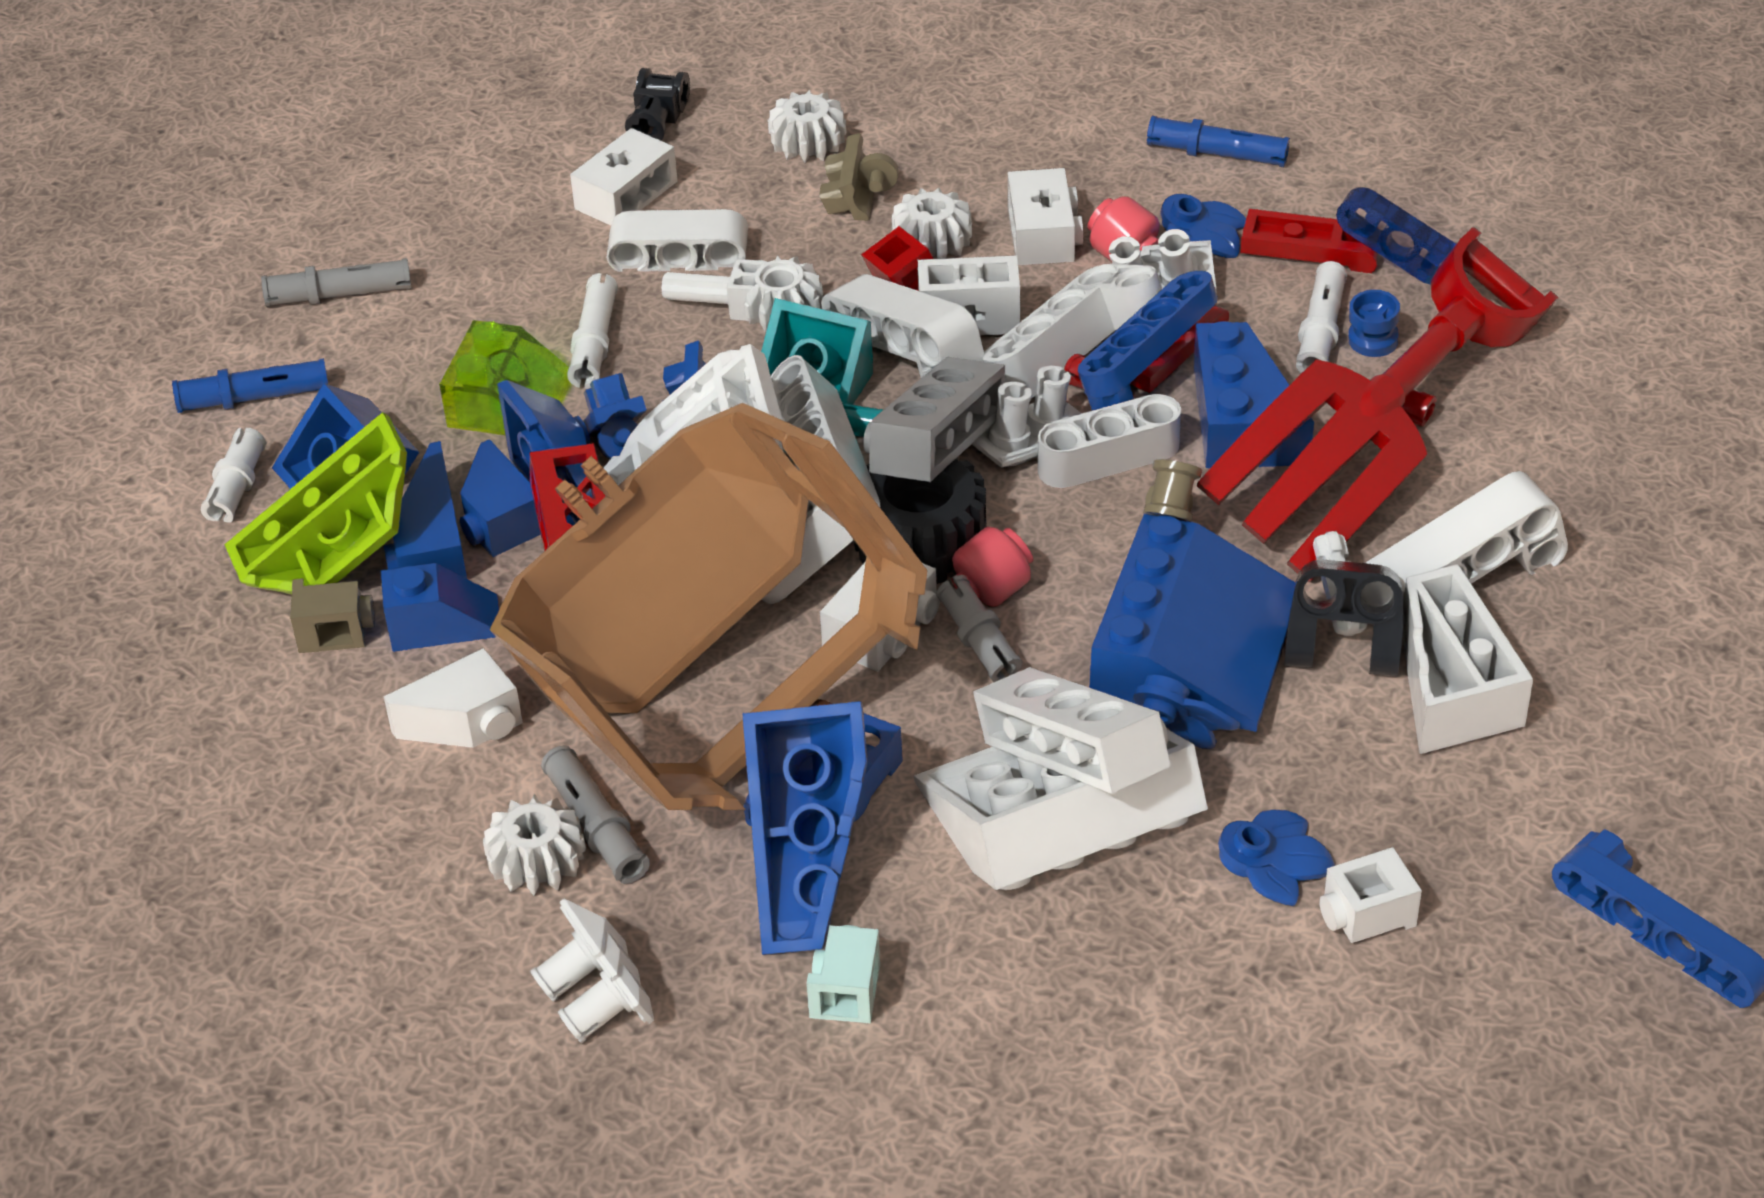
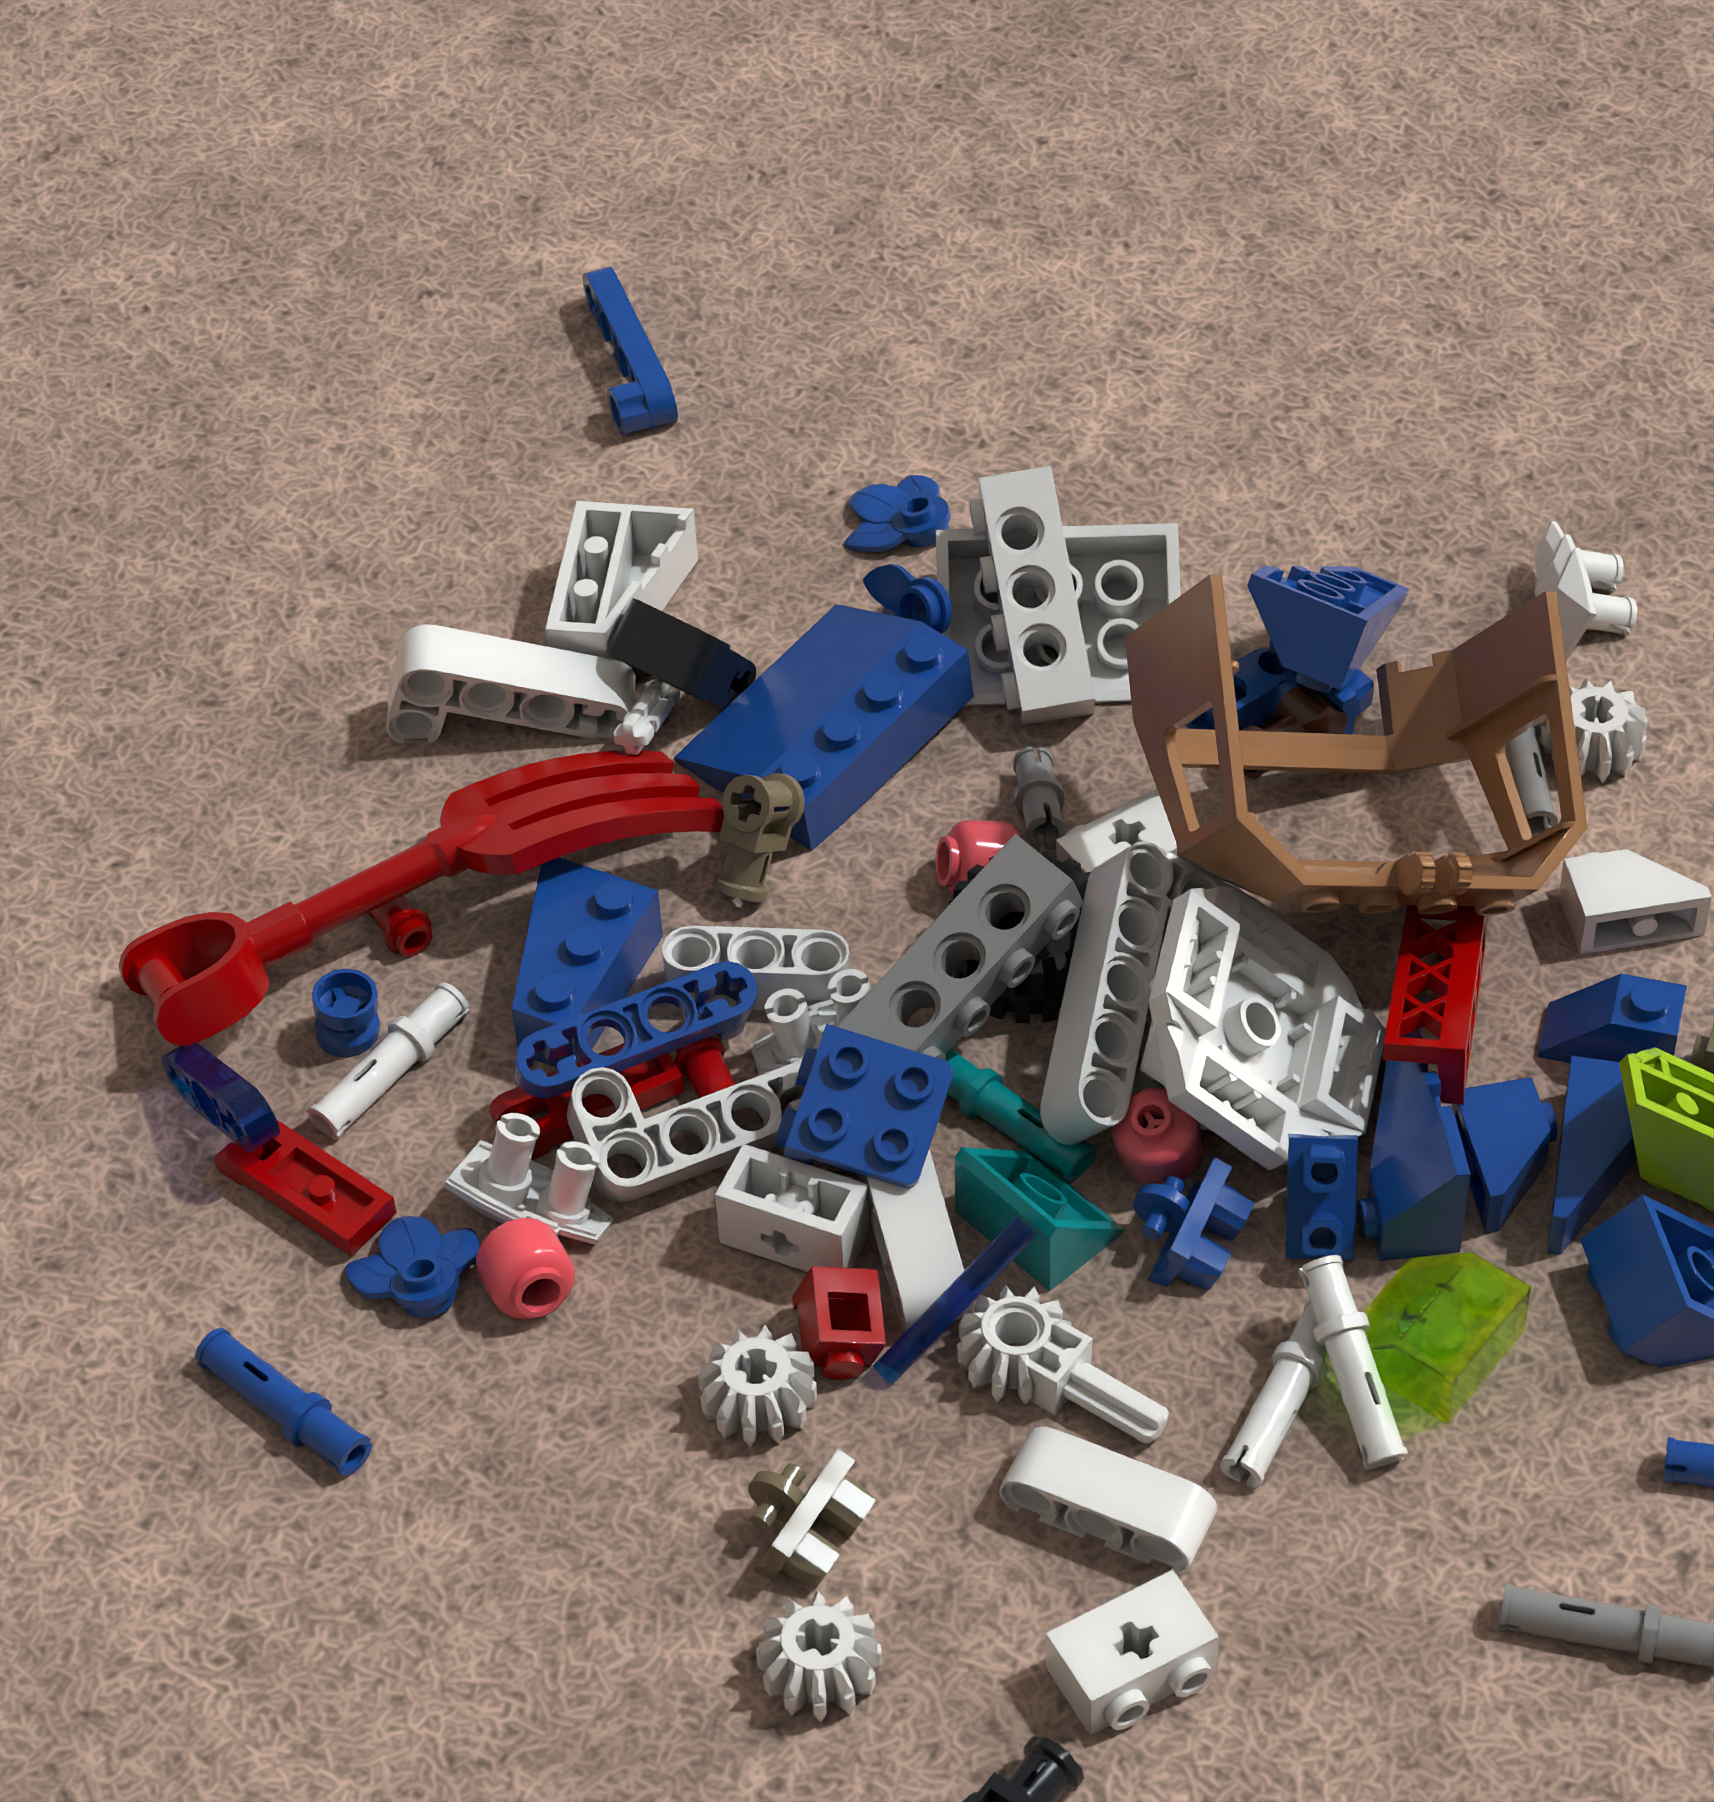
camera: 155 degrees left, 5 degrees up
(559, 336) = (1344, 1336): none -> white pin
(824, 282) = (954, 1300): none -> clear blue bar
(845, 975) = (1348, 519): light aqua brick -> none
(950, 301) = (866, 1107): none -> blue bracket
(1043, 216) = (608, 1339): white brick -> none
(1370, 896) = (851, 433): white brick -> none

